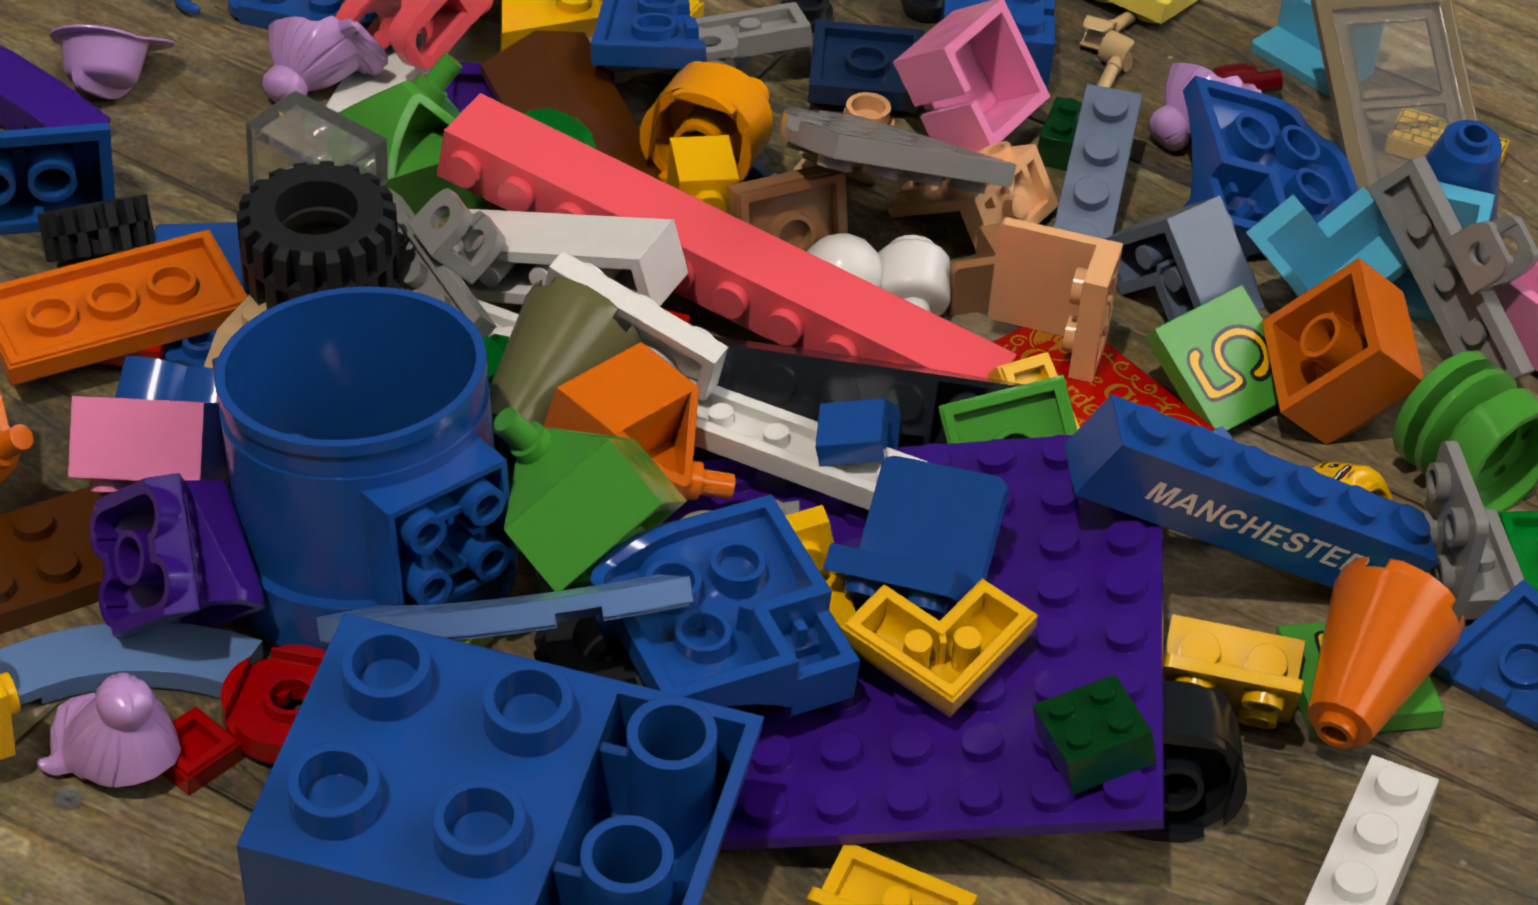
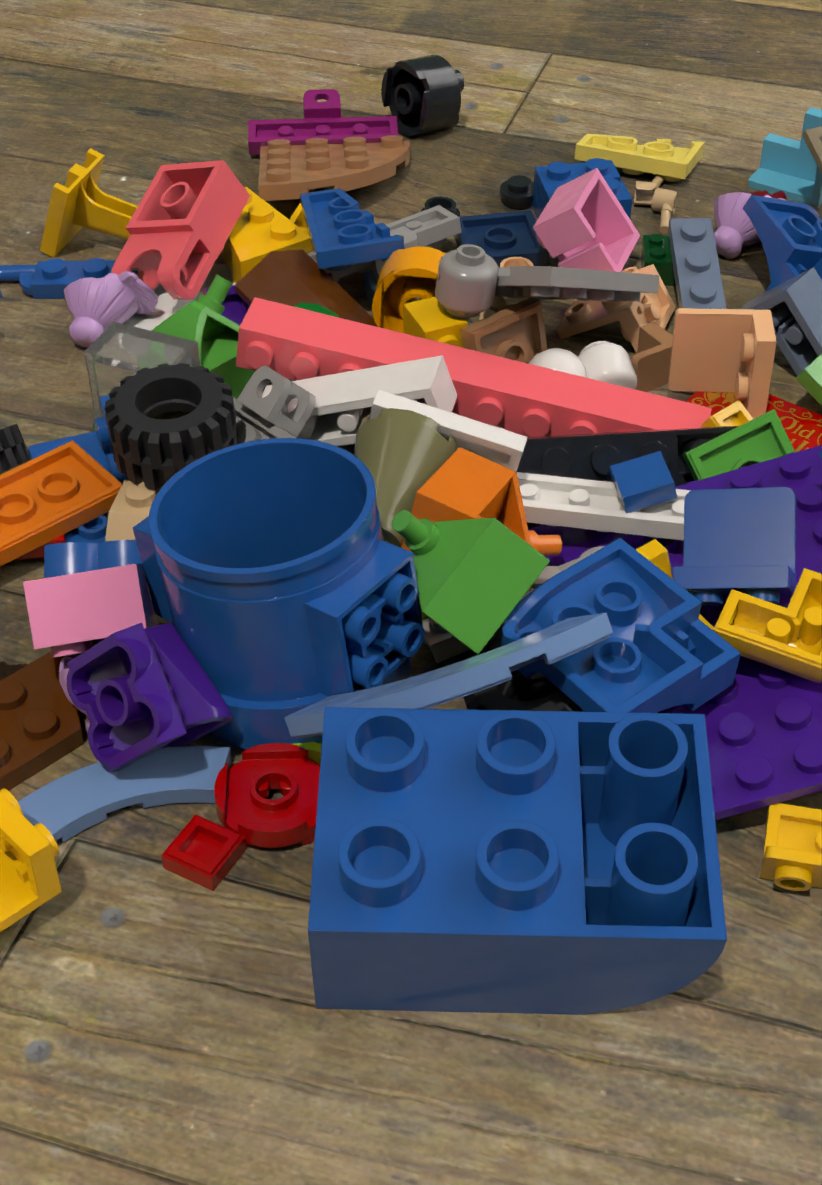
camera: 10 degrees left, 0 degrees up
(112, 735) = (138, 857): lavender hair -> none
(748, 126) = (466, 281): none -> light grey head

